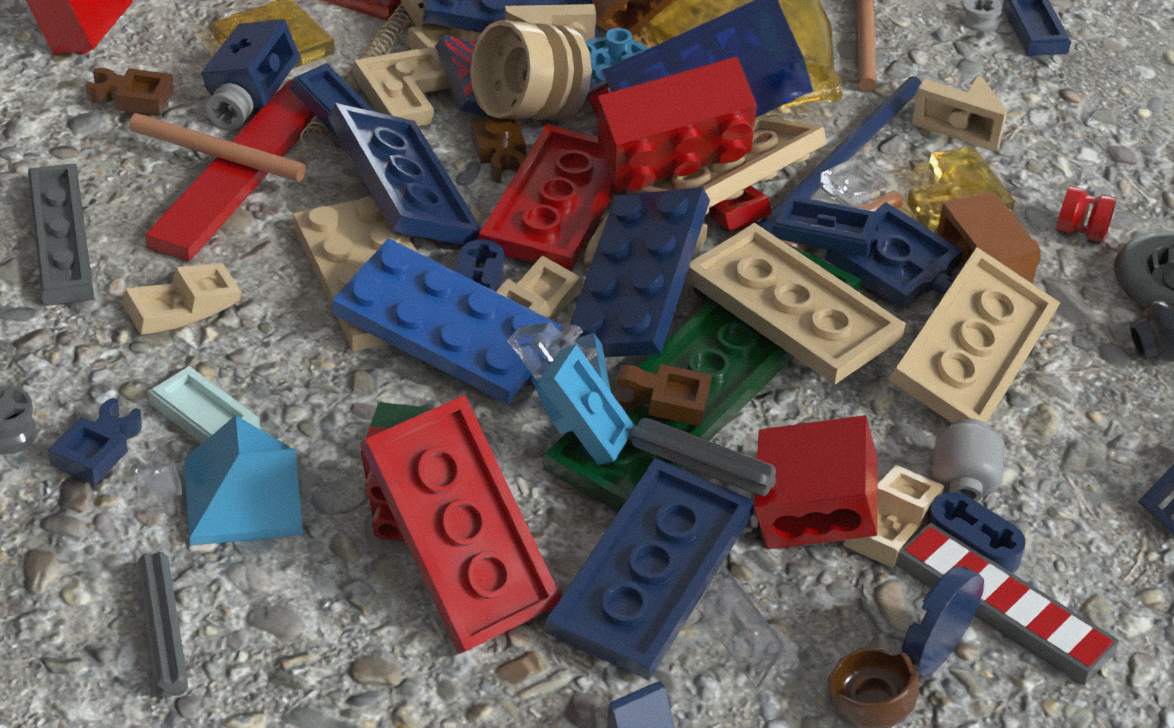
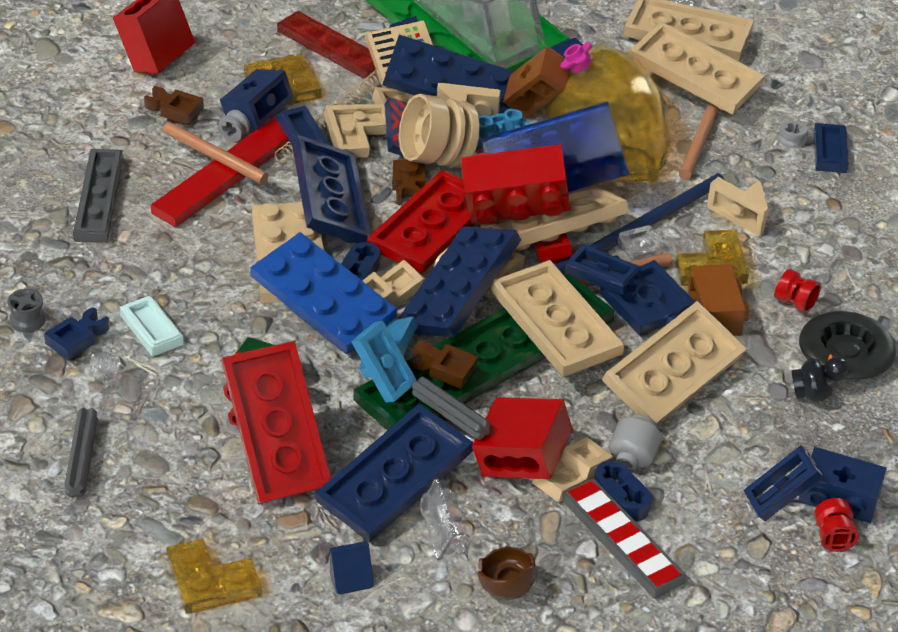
camera: 15 degrees right, 0 degrees up
(192, 296) = (170, 250): tan slope -> none
(242, 487) = (158, 377): dark azure slope -> none
(541, 342) = (370, 313): clear plate -> none
(948, 615) = (566, 538): dark blue tile -> none

